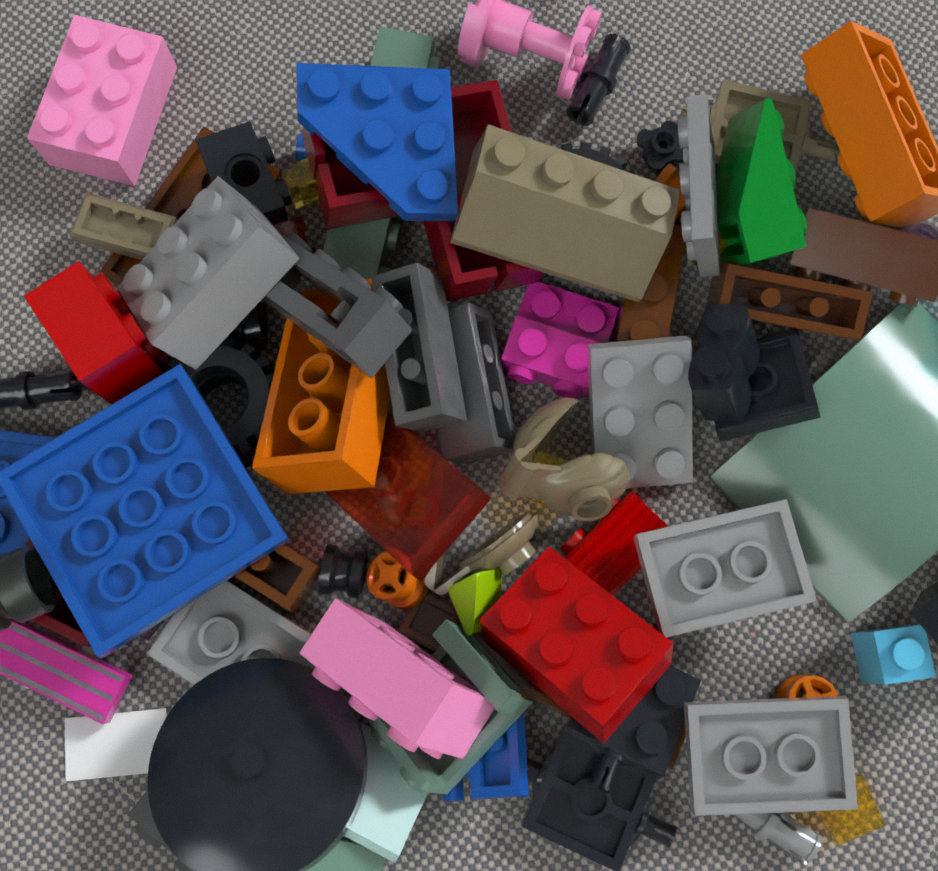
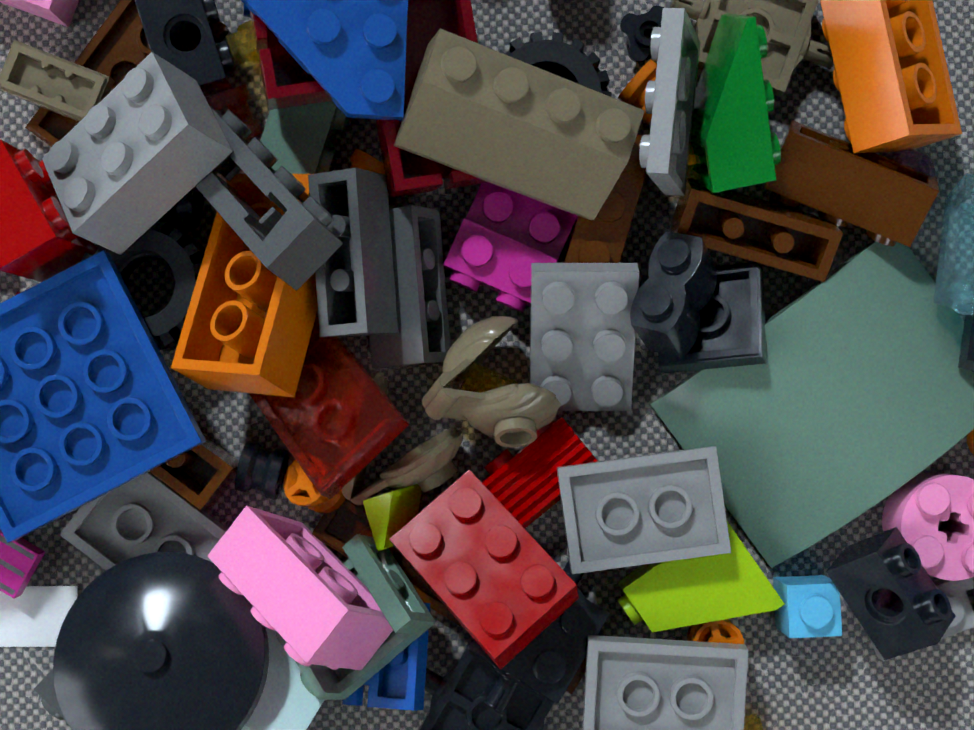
camera: 10 degrees right, 10 degrees up
(783, 647) = (698, 590): none -> lime slope

